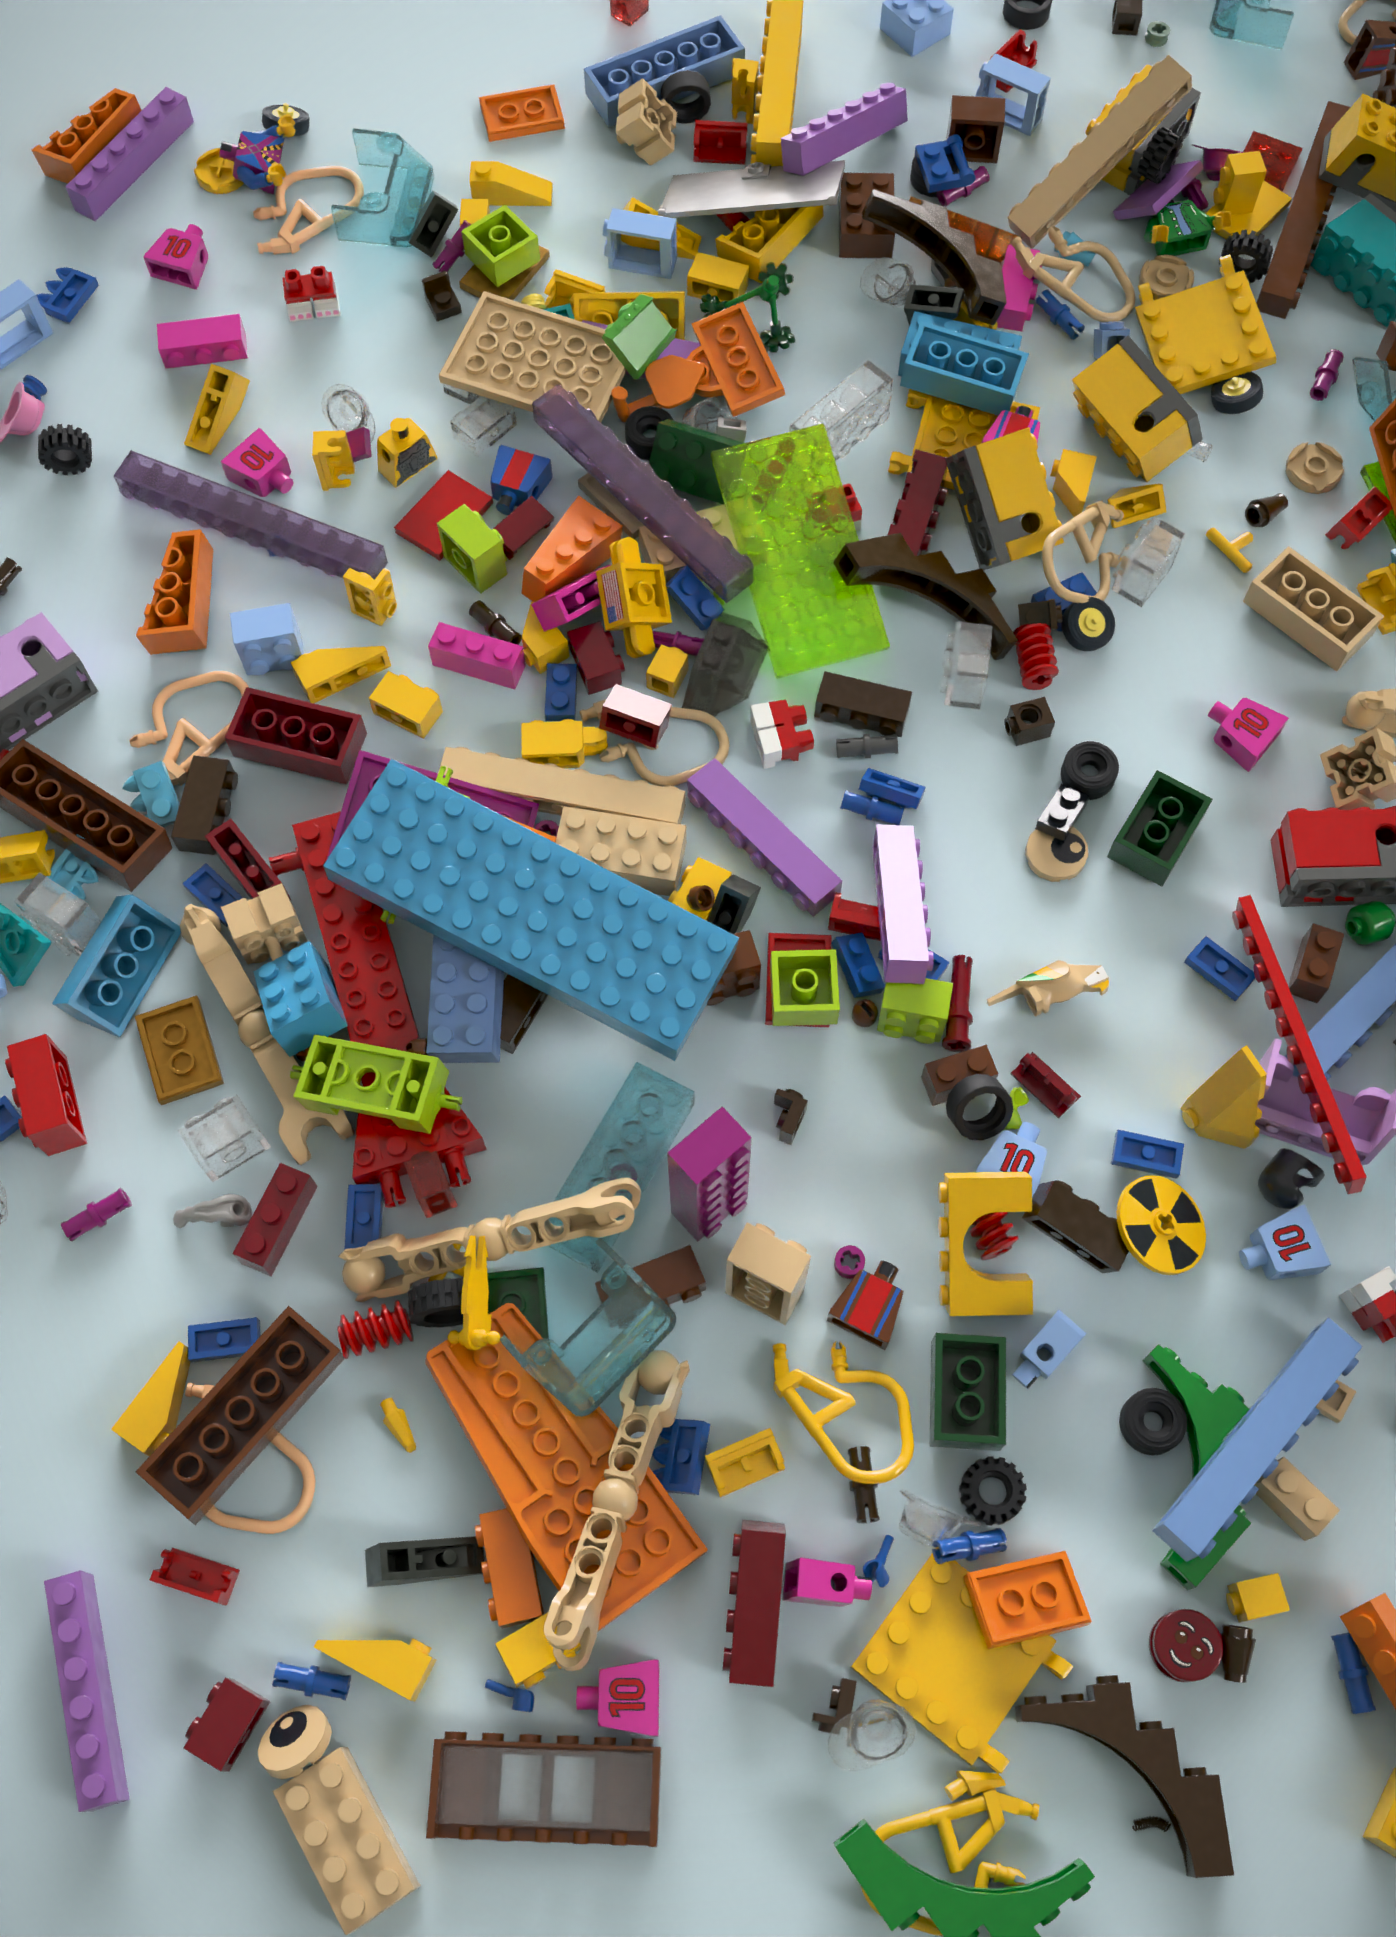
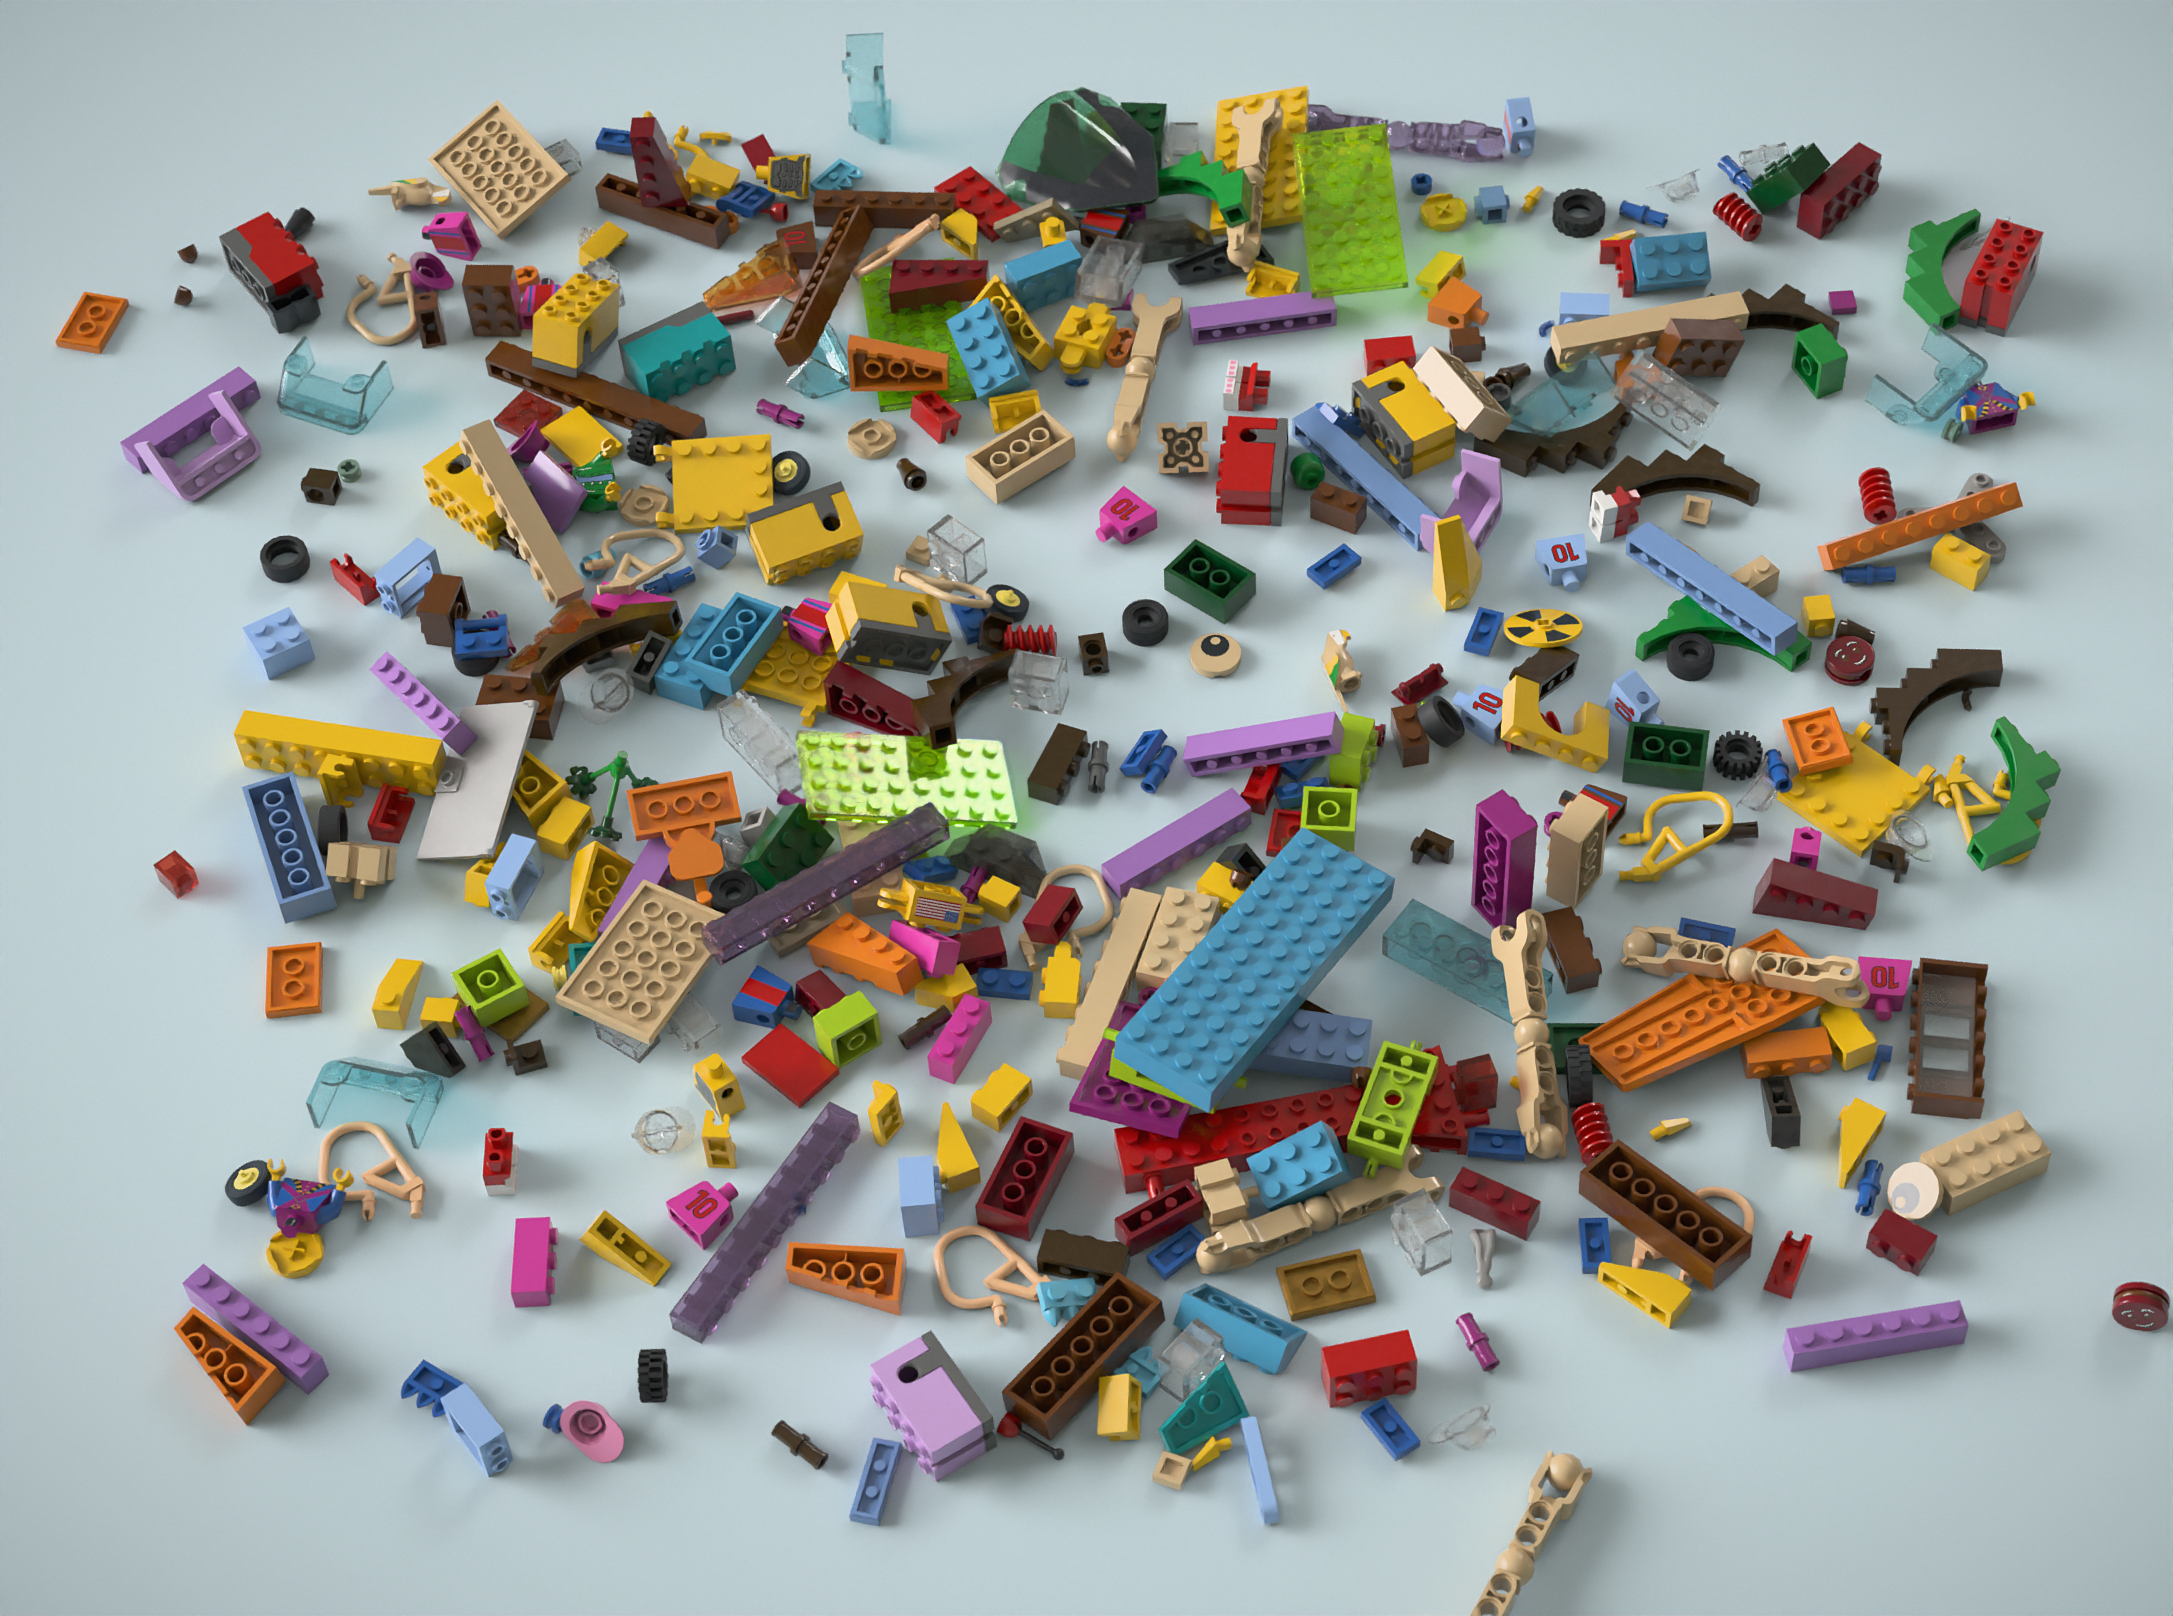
camera: 80 degrees left, 15 degrees down
(178, 257) = (413, 1282): dark pink torso -> none
(359, 443) = (692, 1129): magenta tile -> none
(475, 1300) = (1613, 1044): yellow piece -> none
(605, 1345) = (1613, 964): clear light blue windscreen -> none
(639, 335) = (646, 869): bright green slope -> none
(745, 1462) = (1708, 900): yellow hinge -> none
(775, 731) = (1066, 819): hips -> none
(875, 1568) = (1788, 828): blue hand -> none
(1062, 812) = (1183, 643): plate -> none
(1138, 503) = (883, 556): yellow slope -> none
(1160, 155) = (534, 472): black tyre -> none
(1231, 549) = (941, 503): yellow piece -> none
(1240, 182) = (571, 429): yellow brick -> none
(1281, 1182) = (1511, 552): black helmet -> none
(1299, 1049) = (1407, 519): red plate -> none

